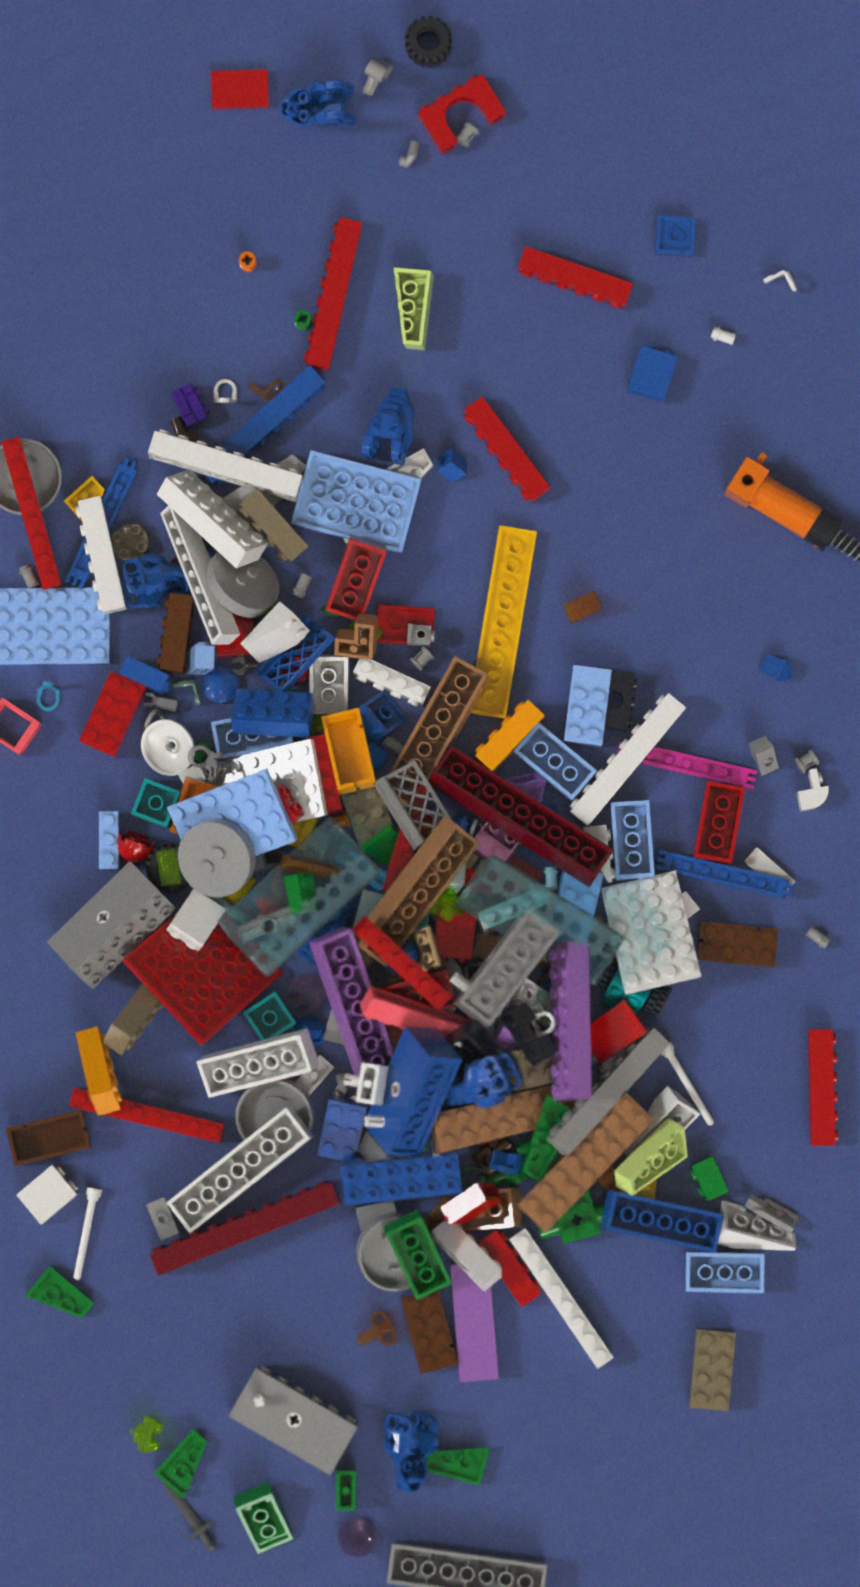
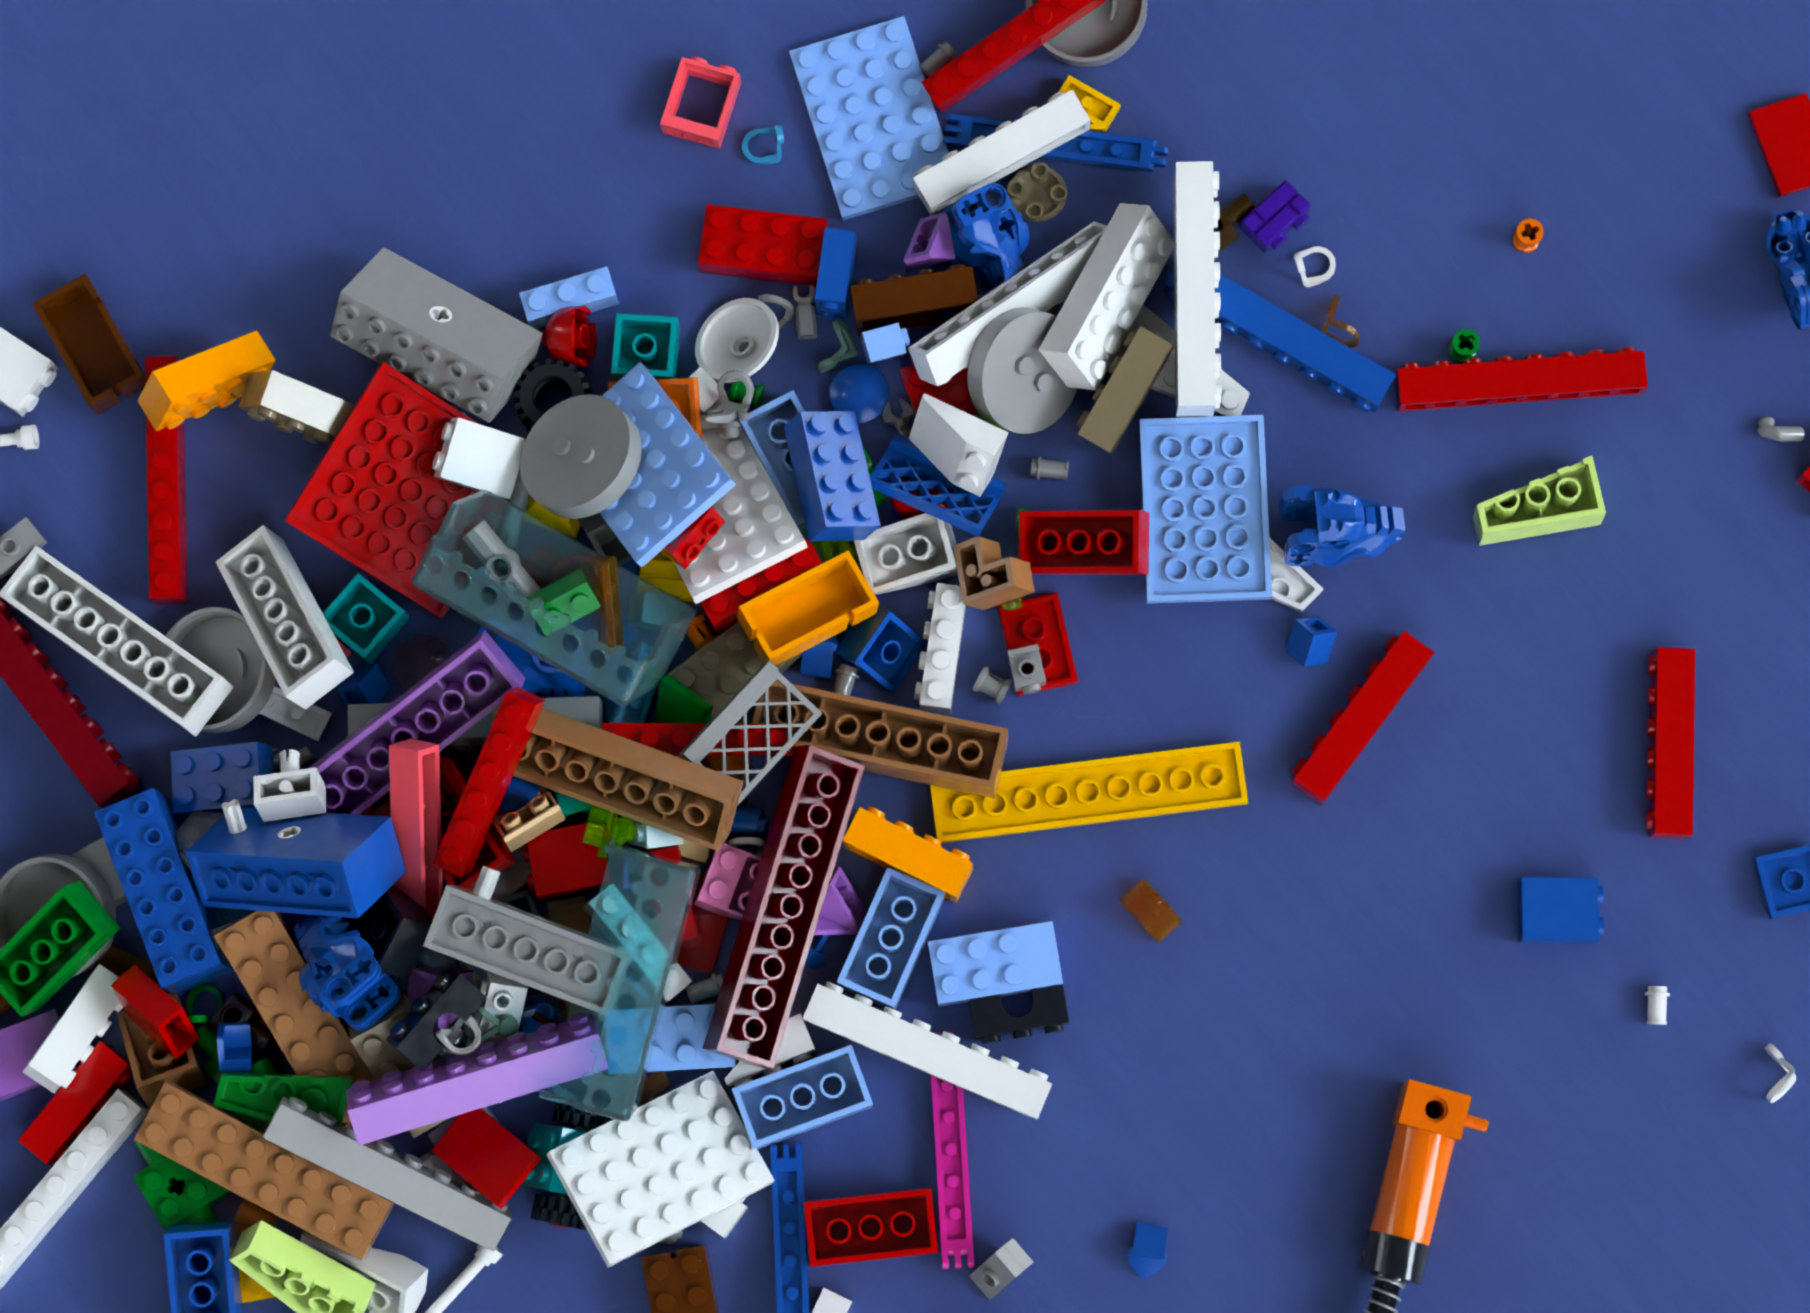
camera: 80 degrees right, 5 degrees down
(144, 613) = (930, 243): none -> medium lavender slope
(168, 867) = (547, 392): clear neon green hips -> none

